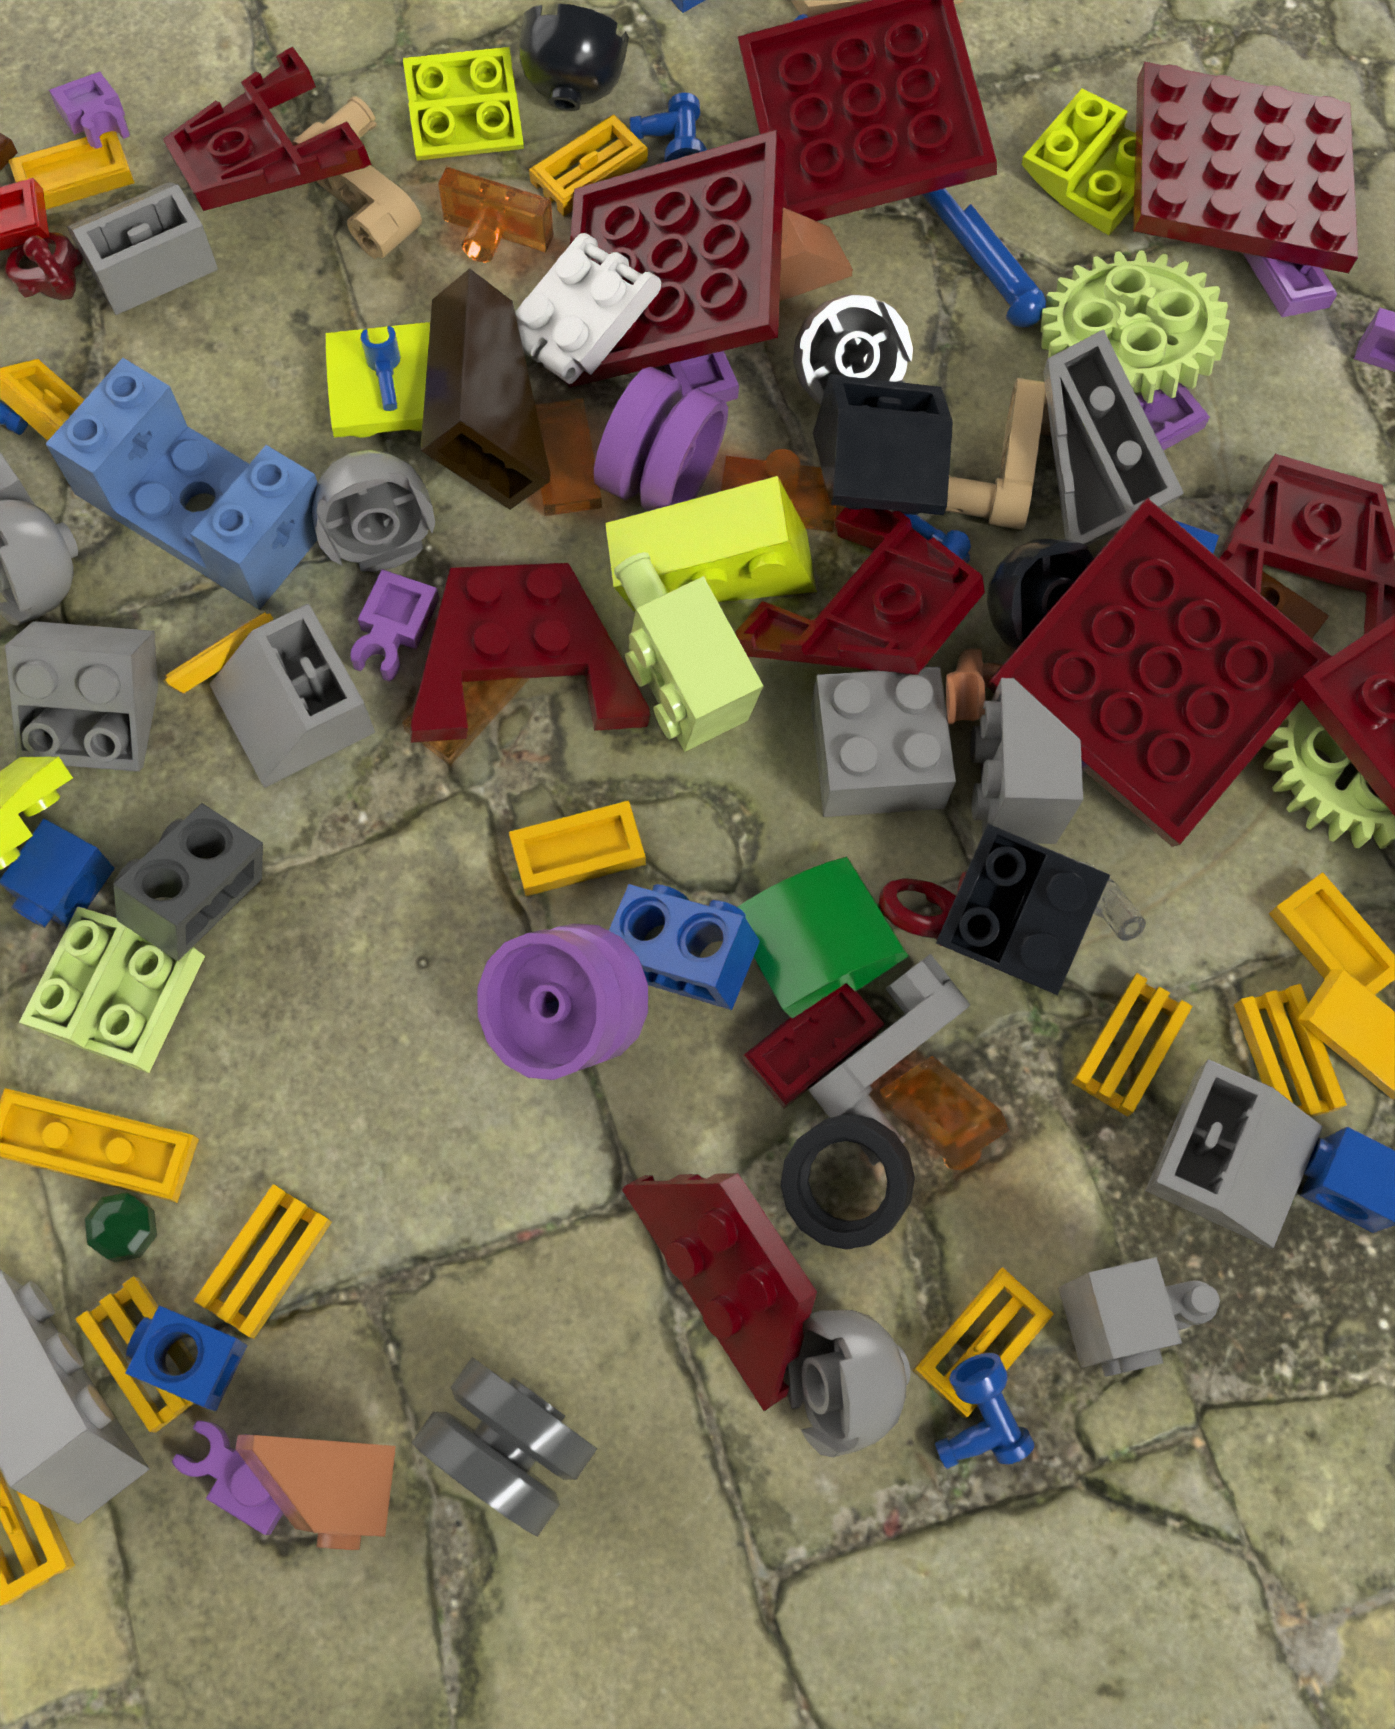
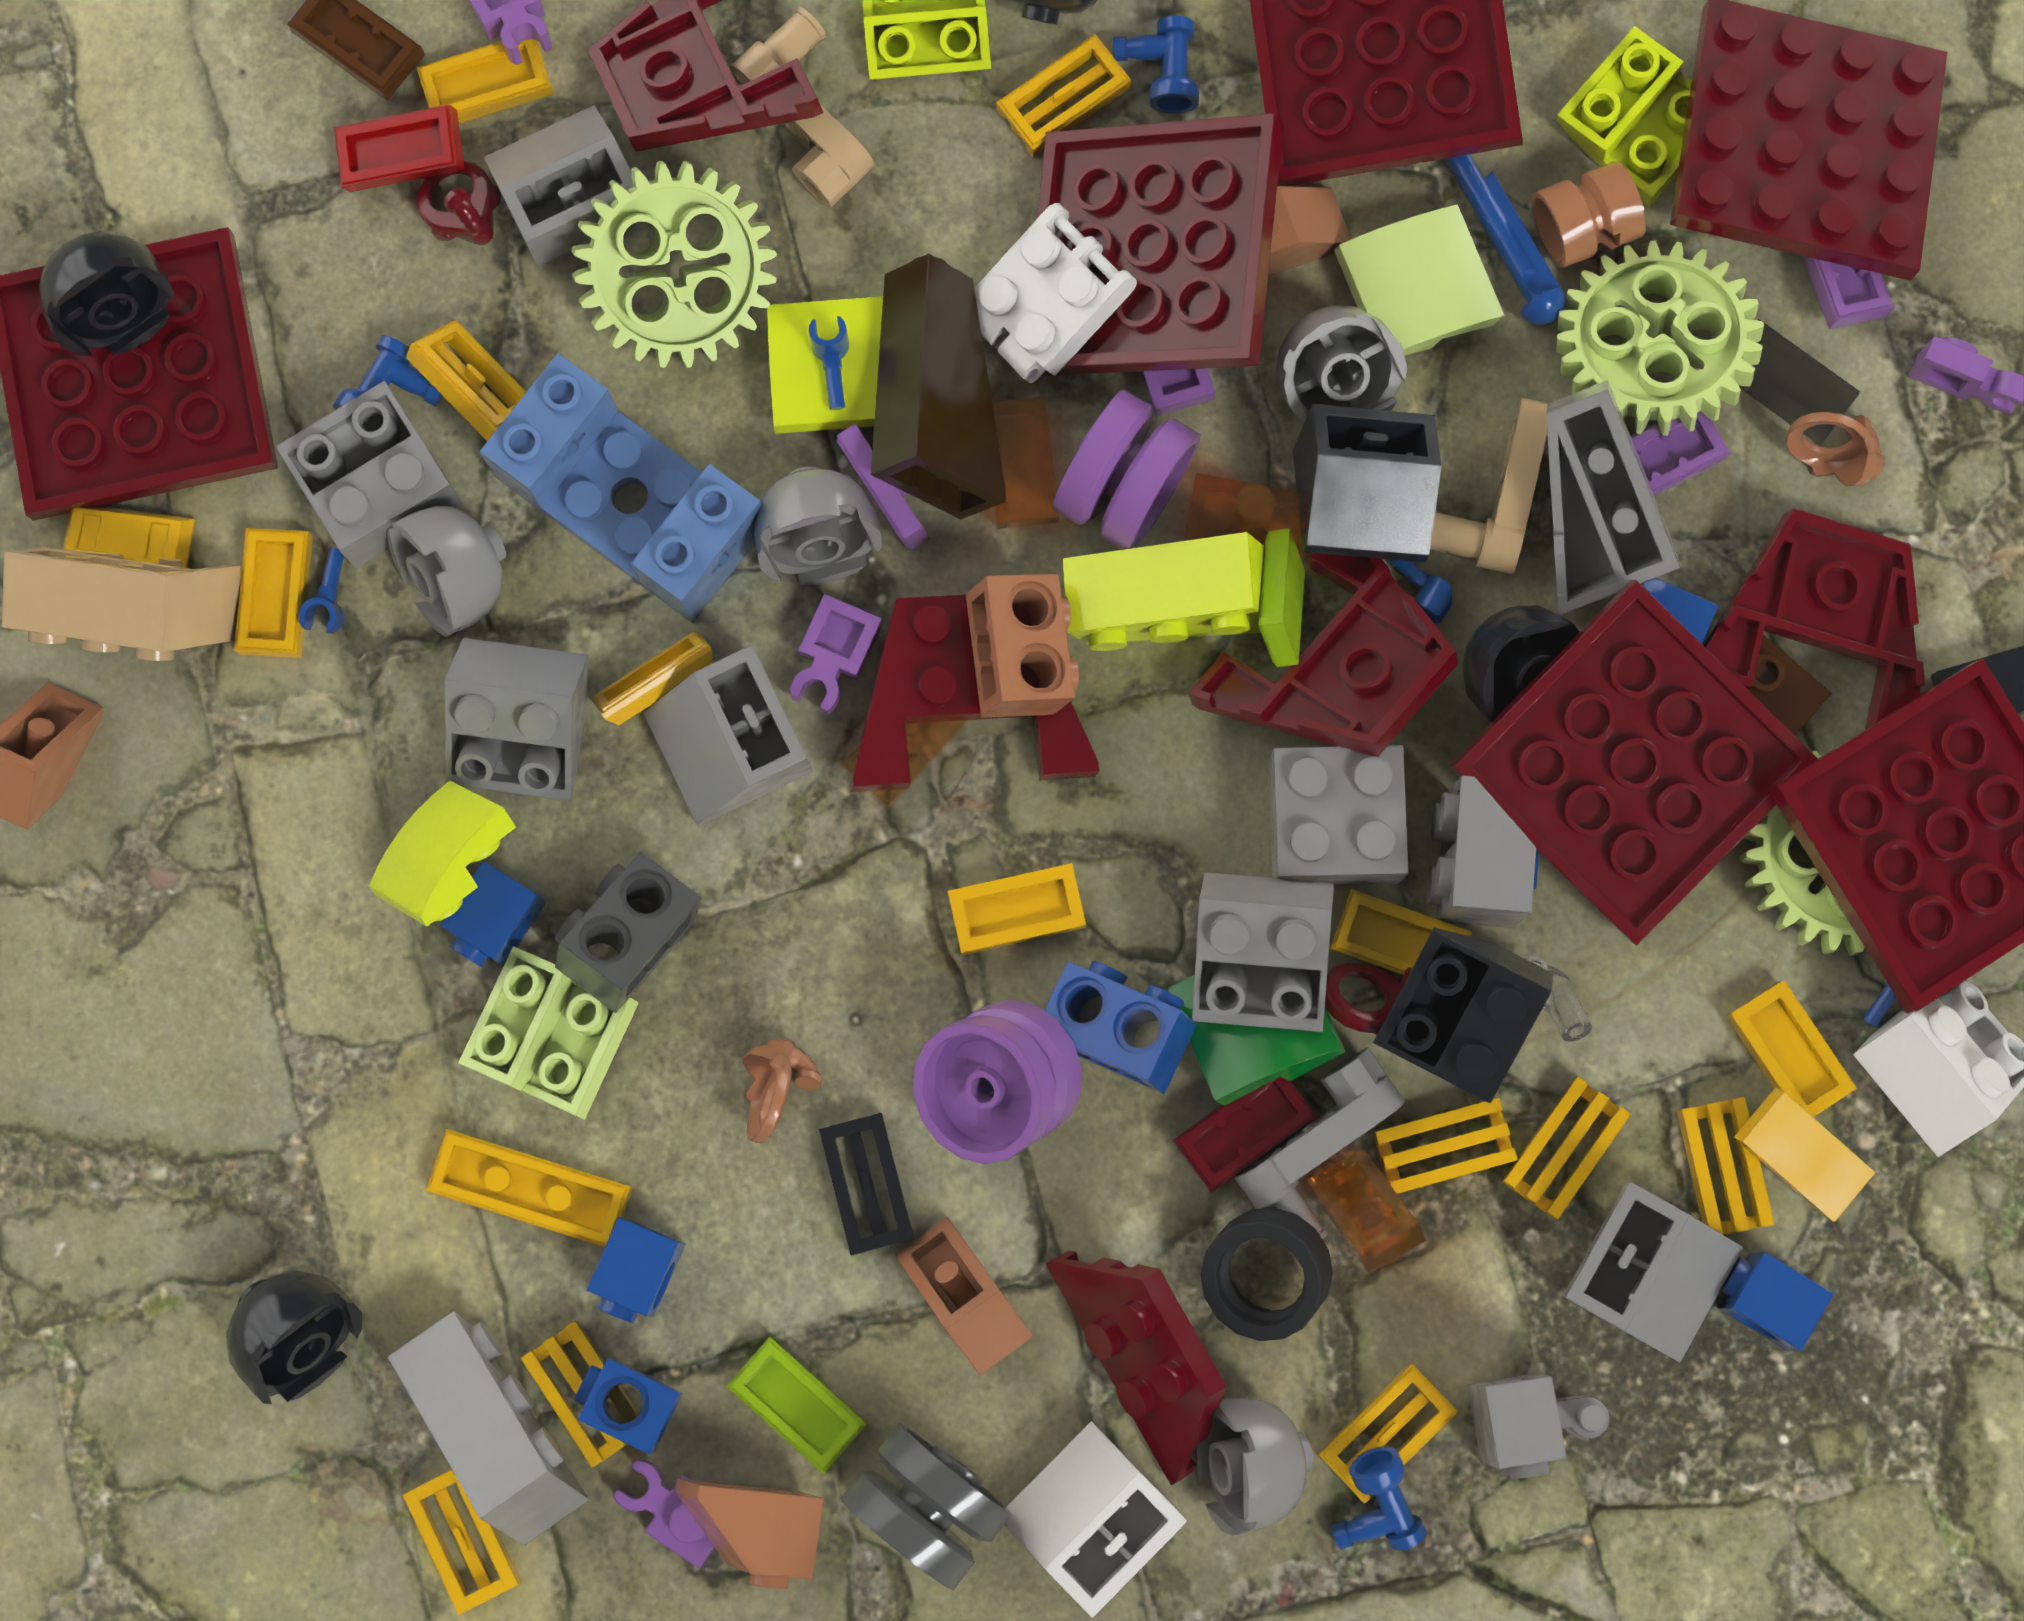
camera: 10 degrees right, 10 degrees up
(120, 1227) = (560, 1272): dark green tile -> none
(196, 1217) = (634, 1270): none -> blue brick
(227, 239) = (669, 206): none -> yellowish green gear
(242, 1246) = (664, 1358): yellow tile -> none
(335, 1010) = (771, 1071): none -> nougat piece
(369, 1352) = (797, 1405): none -> lime tile
(440, 482) = (887, 497): none -> medium lavender plate
(452, 1173) = (880, 1237): none -> black tile
(494, 214) = (954, 165): clear orange tile -> none
(540, 1225) = (963, 1296): none -> nougat slope
(568, 580) = (1005, 643): none -> nougat brick
(684, 1450) = (1092, 1519): none -> white slope
(686, 656) = (1137, 717): yellowish green brick -> none
(813, 548) = (1282, 598): none -> lime tile
(820, 864) = (1262, 951): none -> light grey slope
(923, 284) = (1421, 278): none -> yellowish green slope
(930, 850) = (1384, 932): none -> yellow tile
(967, 686) = (1428, 769): nougat piece -> none
(1060, 230) = (1579, 217): none -> nougat wheel
(1062, 1031) = (1497, 1131): none -> yellow tile
(1261, 369) = (1797, 384): none -> clear smoke tile
(1318, 423) = (1851, 463): none -> nougat piece

